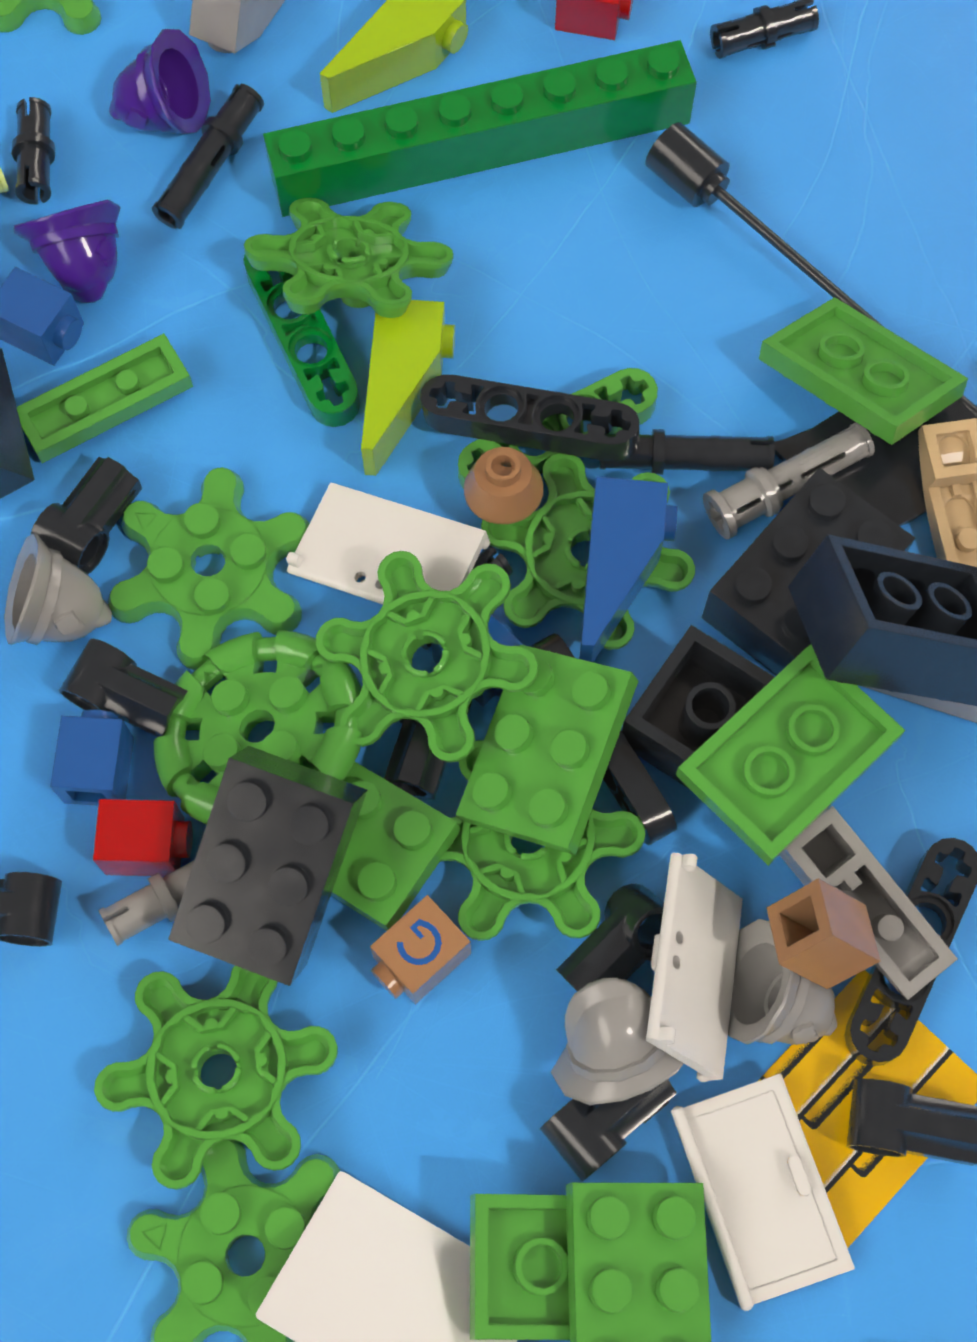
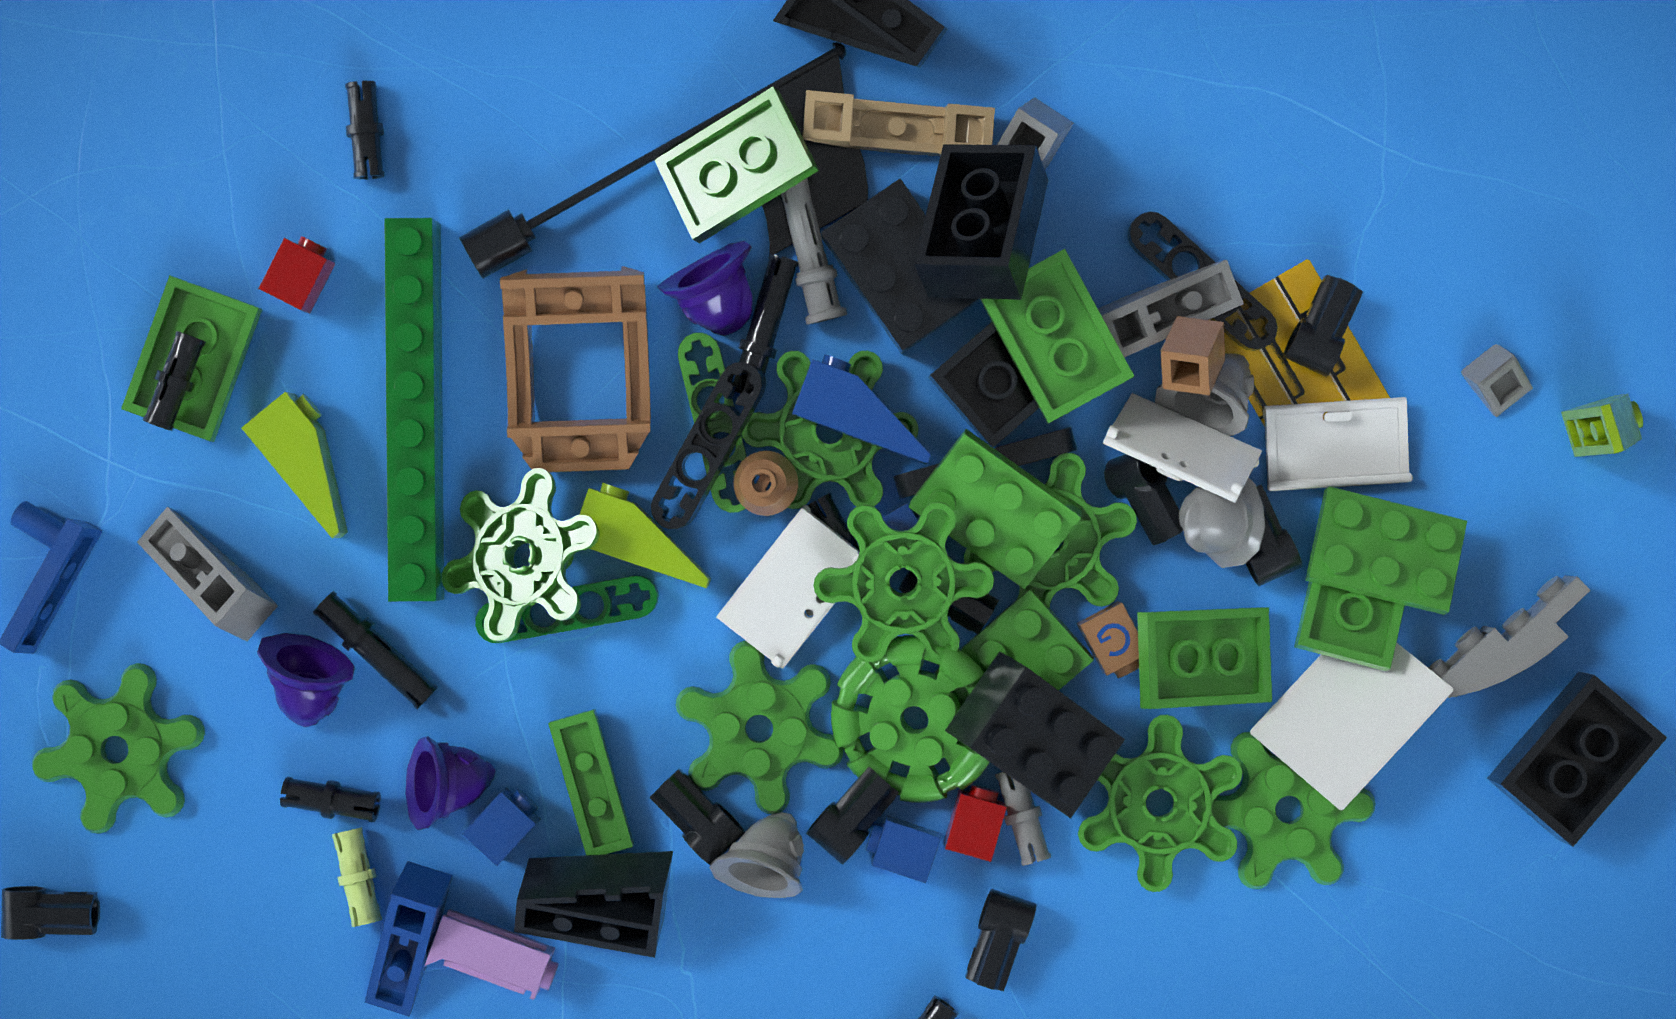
camera: 75 degrees left, 20 degrees up
(425, 1072) = (1204, 657): none -> bright green plate
(650, 234) = (576, 300): none -> medium nougat wedge
(709, 385) = (714, 290): none -> dark purple piece

